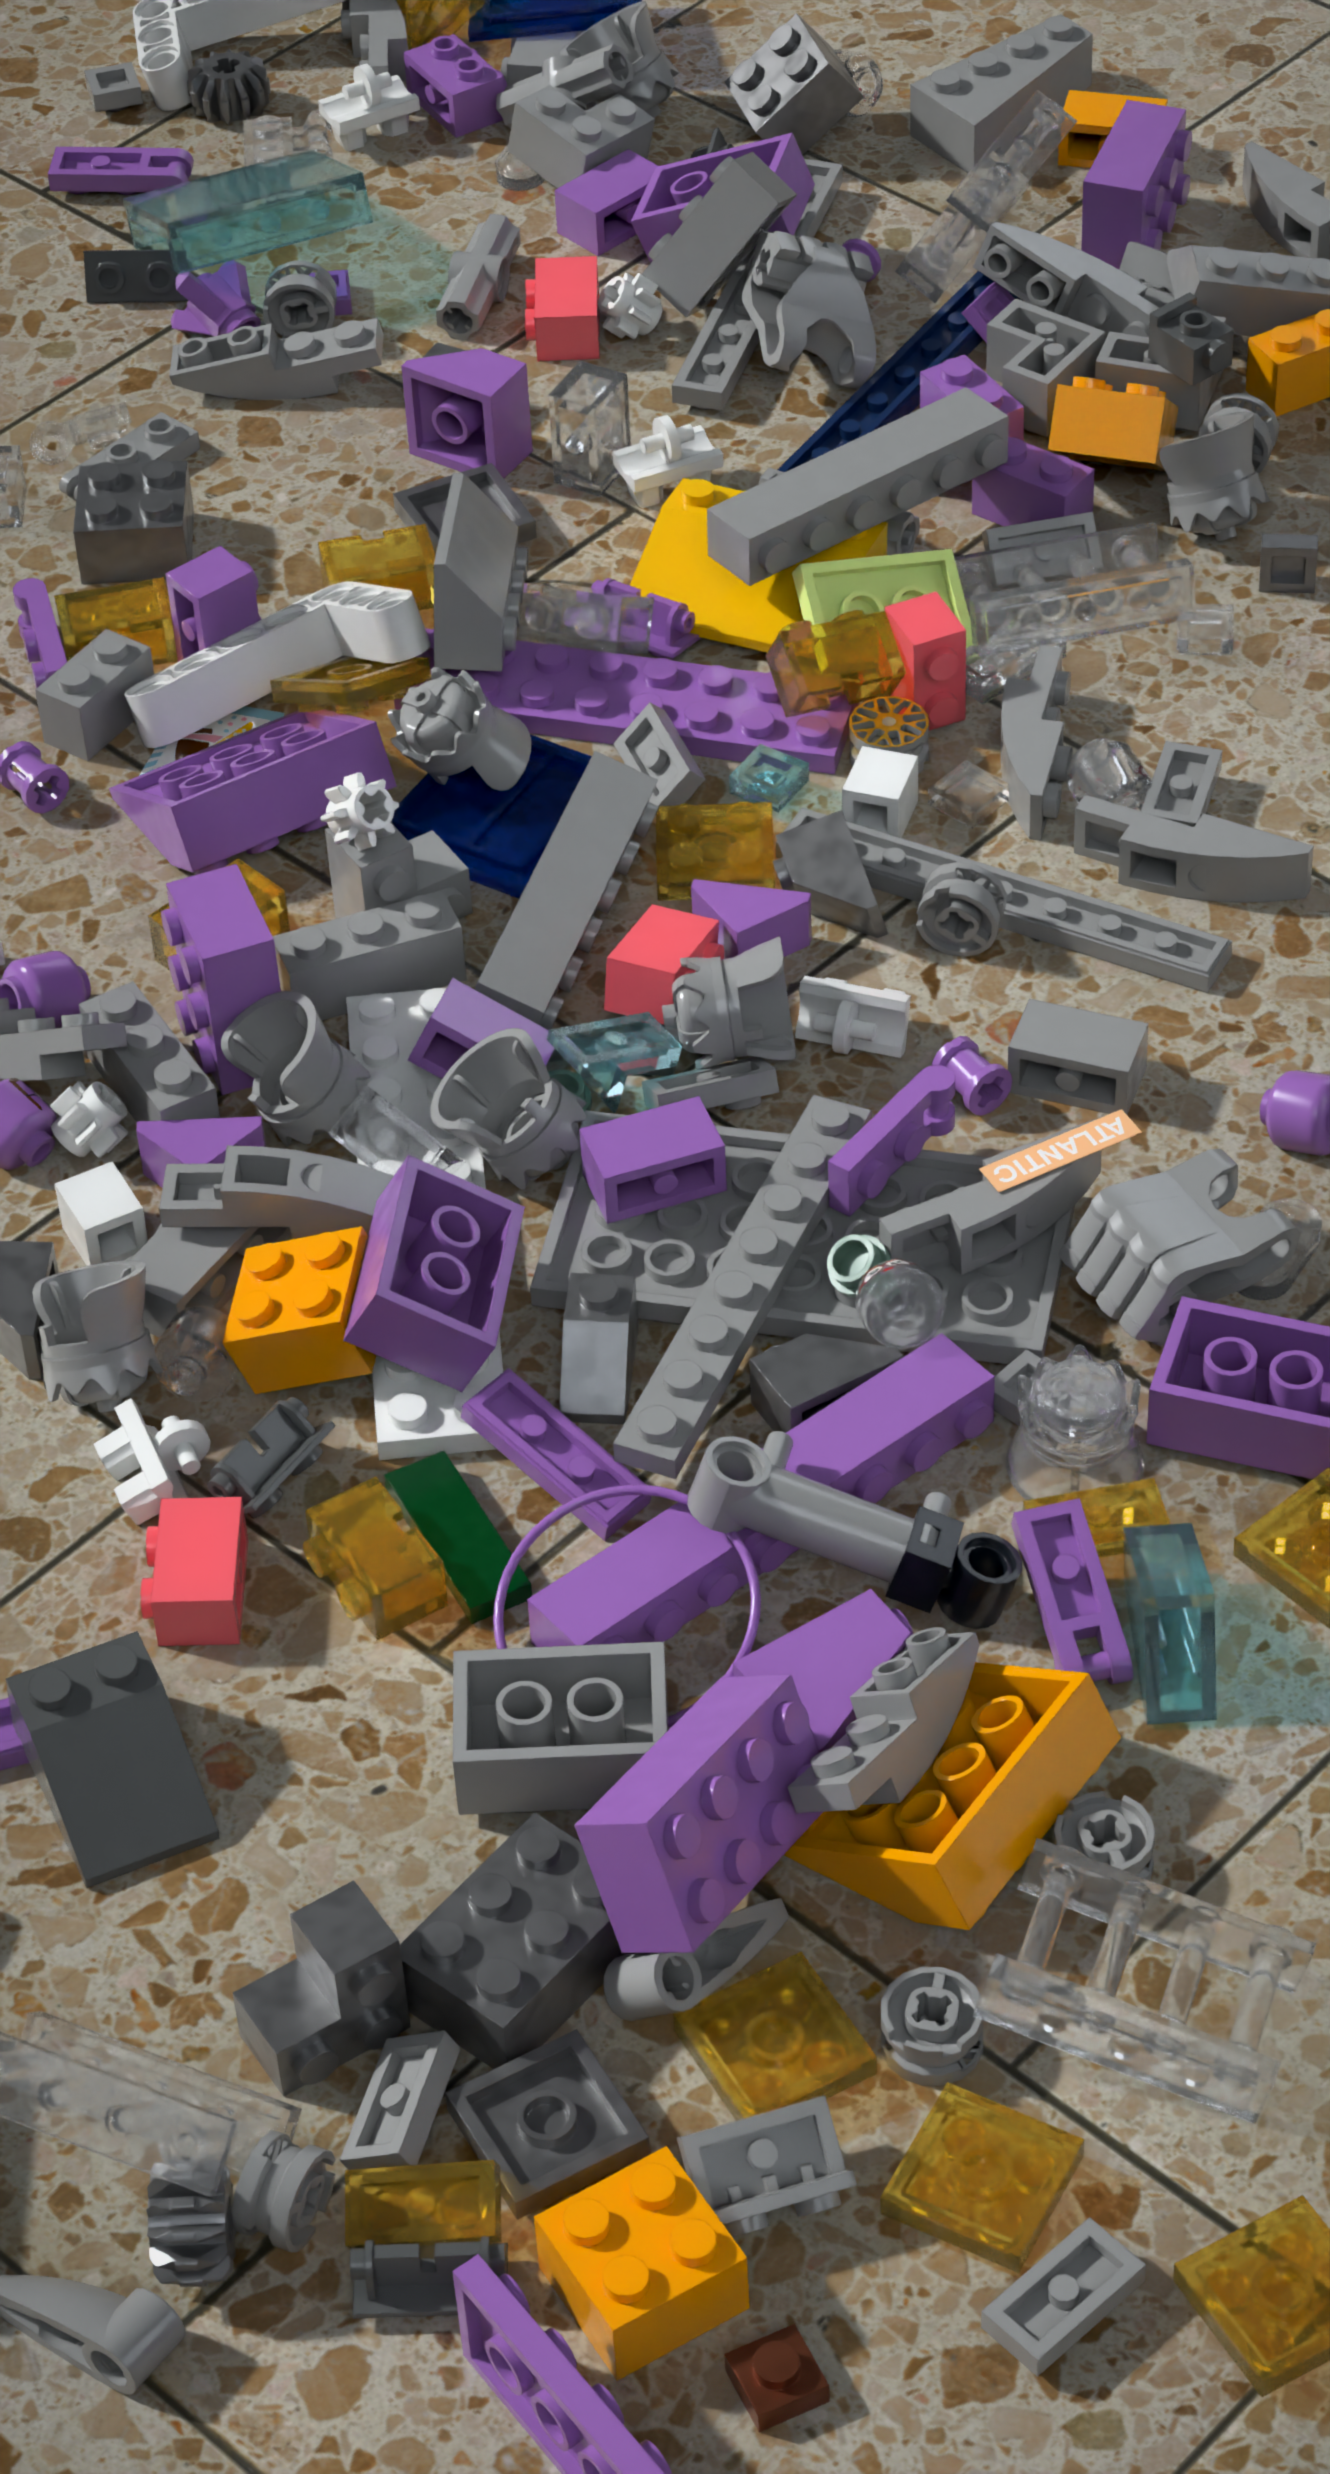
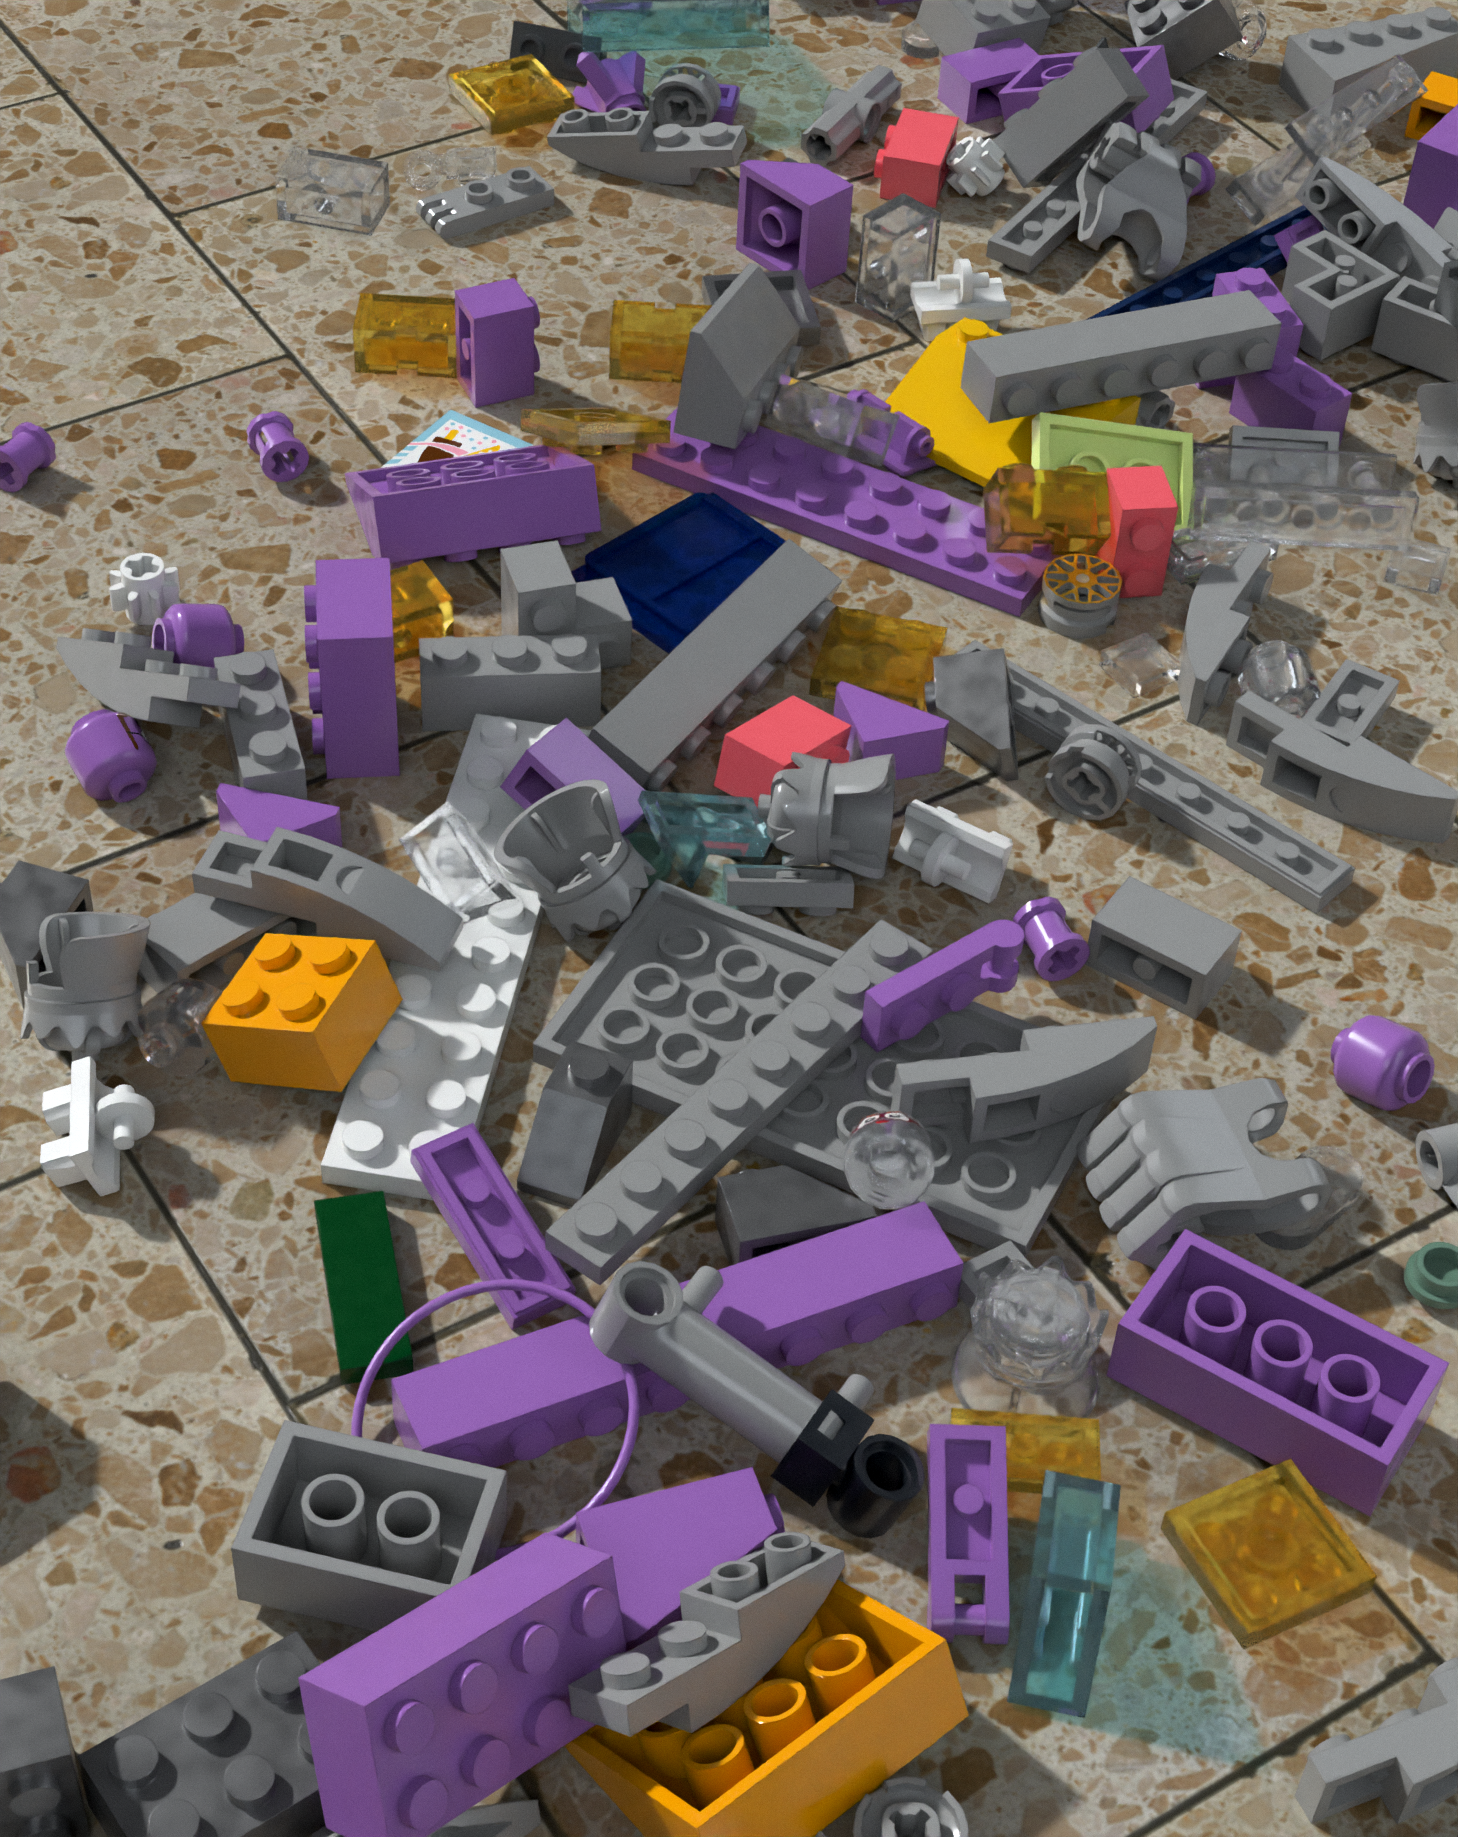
camera: 10 degrees right, 0 degrees up
(38, 629) = (336, 355): medium lavender plate -> none
(85, 699) = (364, 387): light grey brick -> none
(89, 1119) = (183, 770): white gear -> none
(101, 1215) = (153, 864): white brick -> none
(108, 334) = (511, 94): none -> clear yellow plate
(132, 520) = (461, 243): flat silver brick -> none
(197, 1571) = (85, 1255): coral brick -> none
(287, 1447) = (180, 1170): dark grey hinge -> none
(297, 1069) = (394, 771): light grey hat -> none
(333, 622) = (476, 400): white beam -> none
(359, 811) = (517, 534): white gear -> none
(376, 1567) = (266, 1293): clear yellow brick -> none
(435, 1274) = (428, 1008): medium lavender brick -> none
(454, 726) = (667, 486): light grey hat -> none
(653, 1159) = (698, 945): medium lavender brick -> none
(658, 750) = (856, 558): light grey plate -> none
(769, 777) = (953, 604): clear light blue plate -> none
(851, 1260) = (860, 1097): sand green plate -> none
(881, 790) = (1055, 641): white brick -> none
(1060, 1150) = (1105, 1040): light nougat sticker -> none
(1111, 425) = (1379, 358): light orange brick -> none

